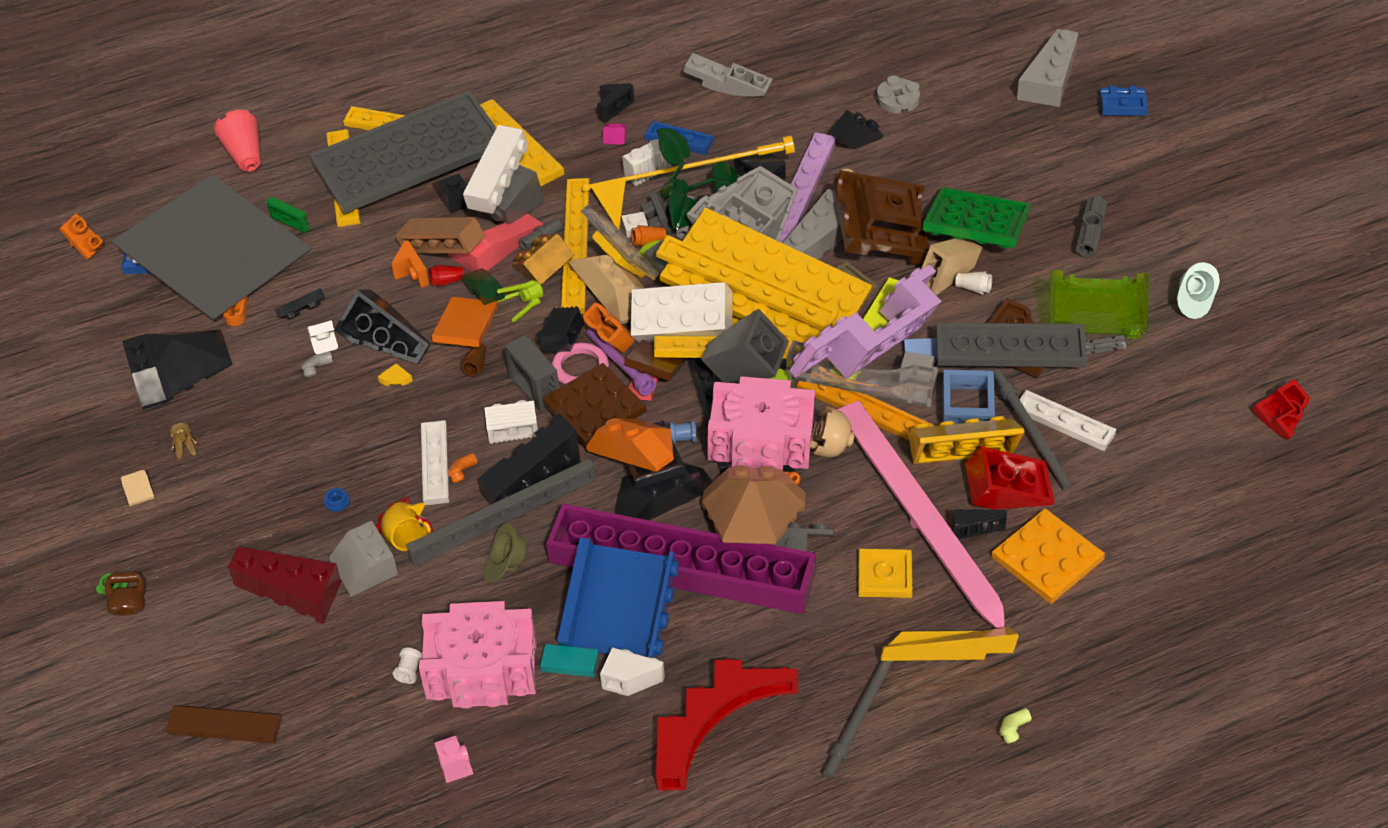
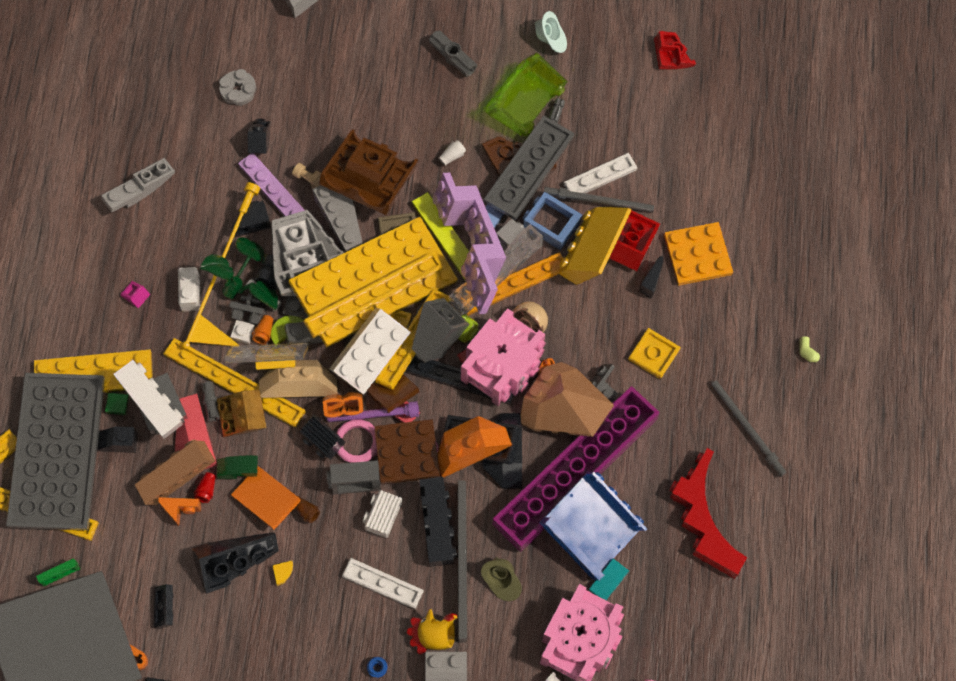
camera: 65 degrees left, 20 degrees up
(315, 361) = (230, 623): light grey arm -> none
(322, 337) = (206, 604): white slope -> none
(459, 465) = (399, 570): orange arm -> none
(528, 291) = (265, 439): lime plant -> none
(614, 100) = (102, 274): black slope -> none
(630, 673) = (643, 550): white slope -> none
(683, 431) = (465, 407): medium blue bush -> none
(697, 141) = (173, 254): blue tile -> none
(925, 515) = (622, 303): bright pink piece -> none
(949, 645) = (734, 347): yellow wedge -> none
(950, 259) = (428, 158): tan slope -> none
(977, 217) = (403, 115): green plate -> none

